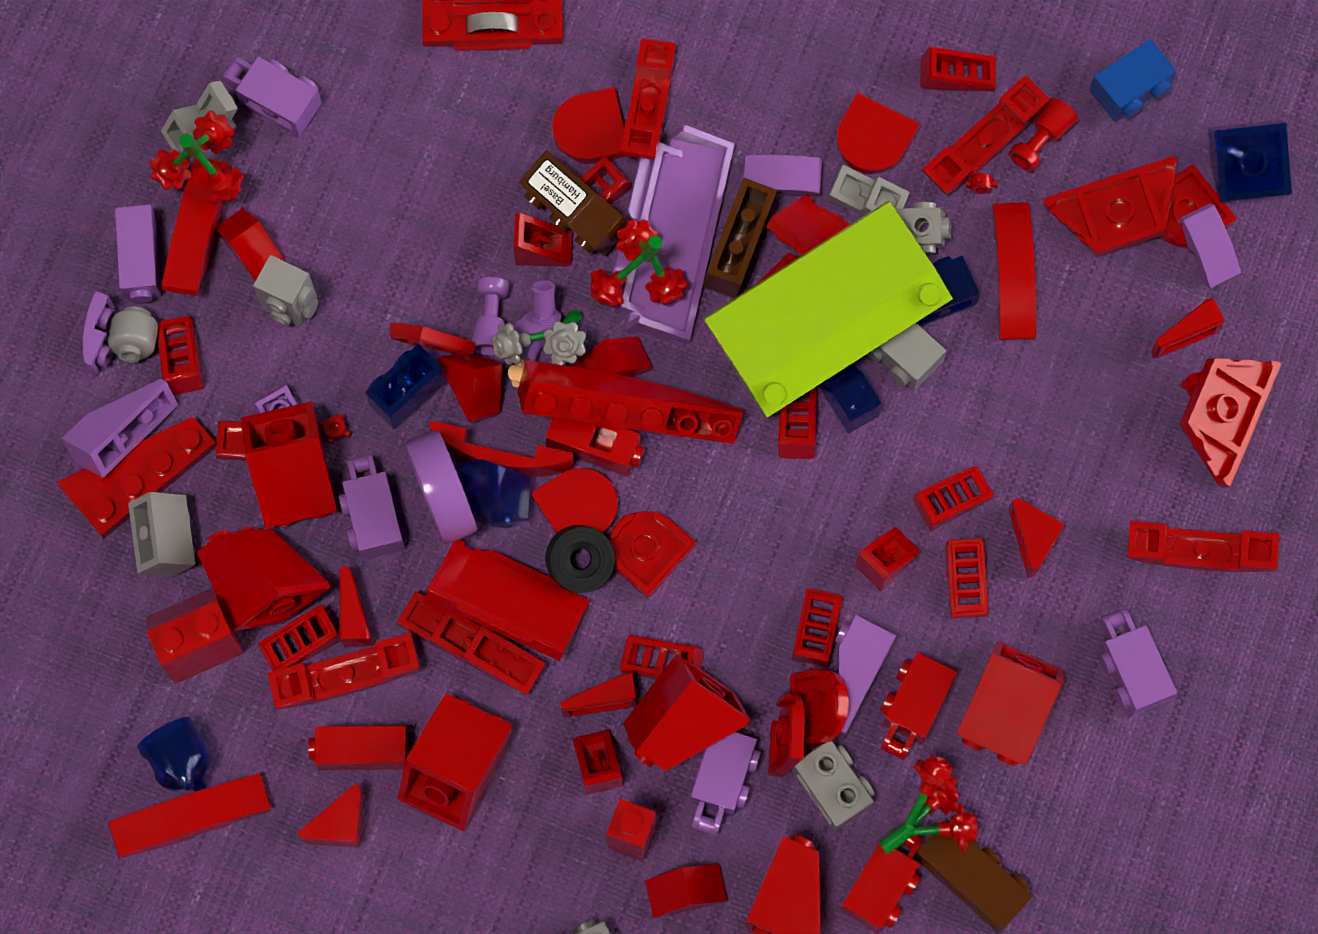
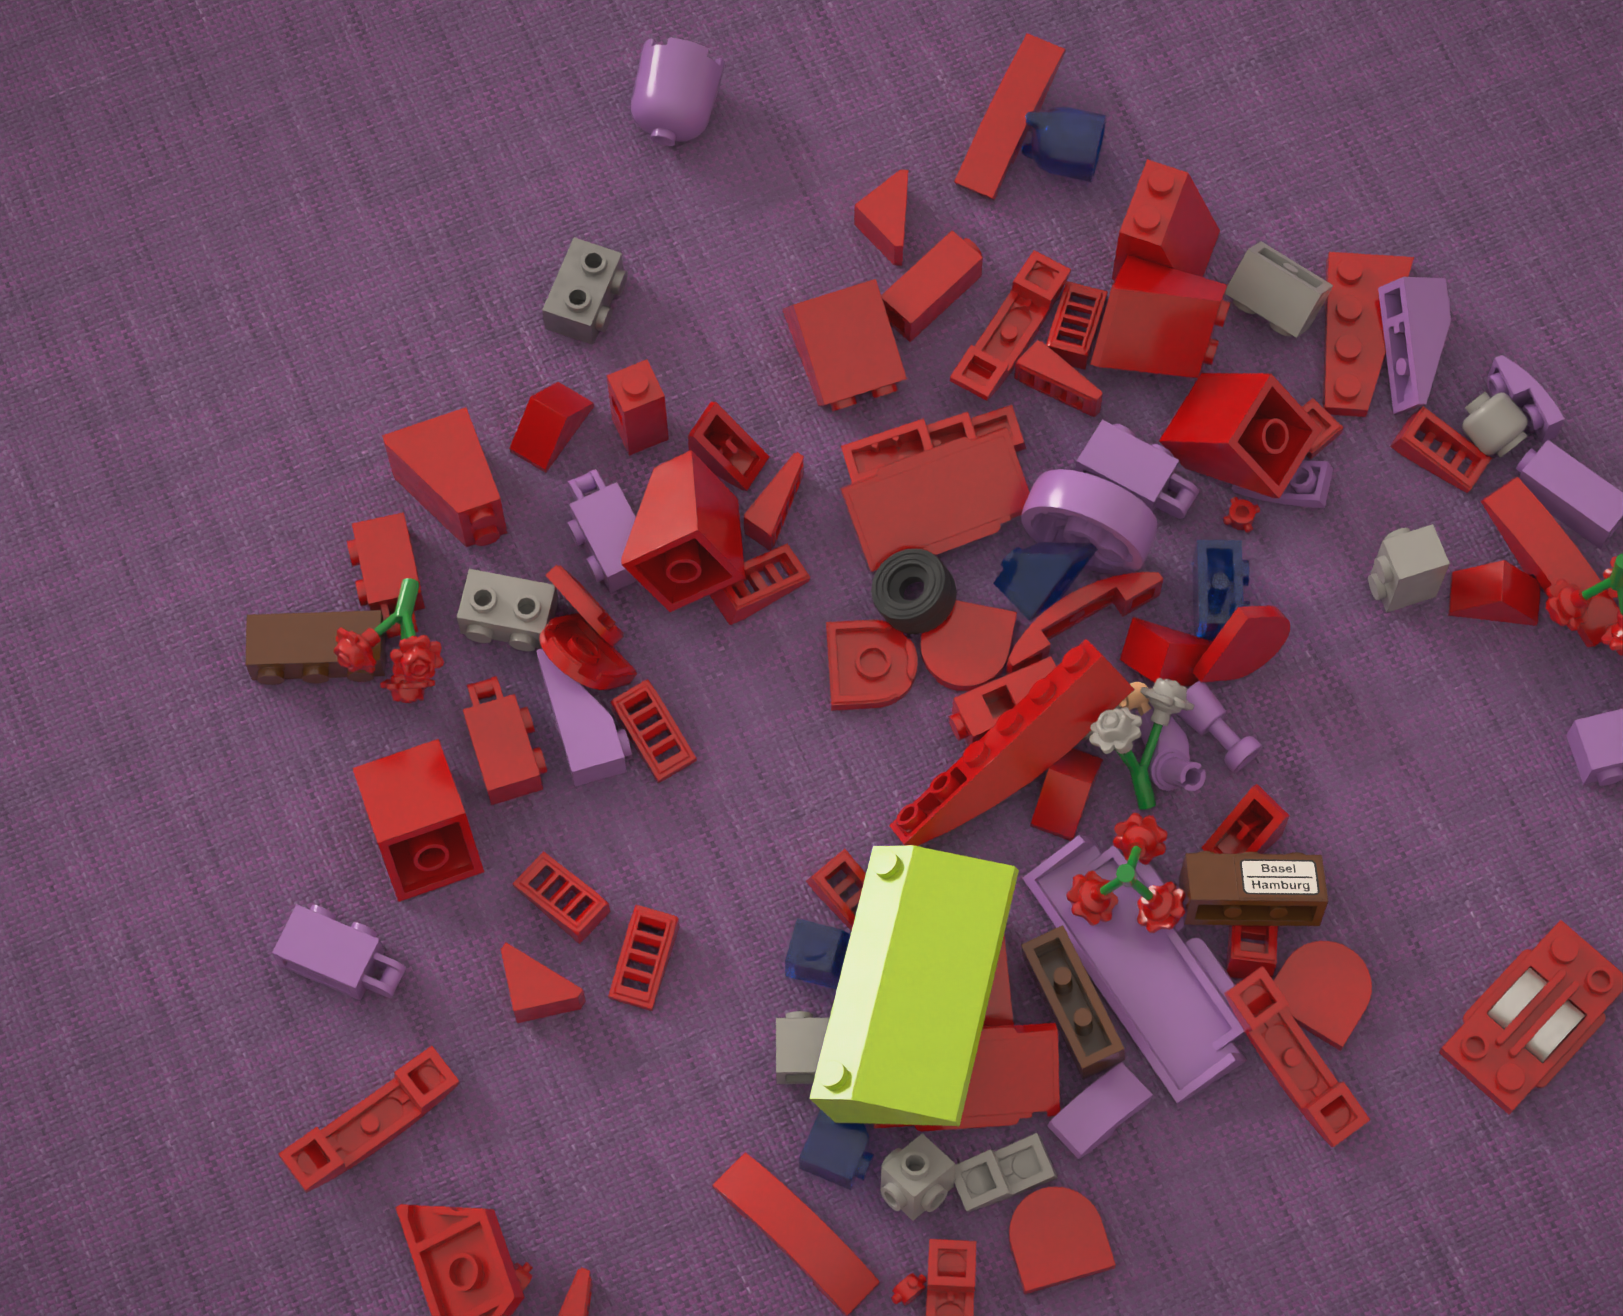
camera: 135 degrees right, 5 degrees down
(886, 558) = (649, 843): red slope -> none

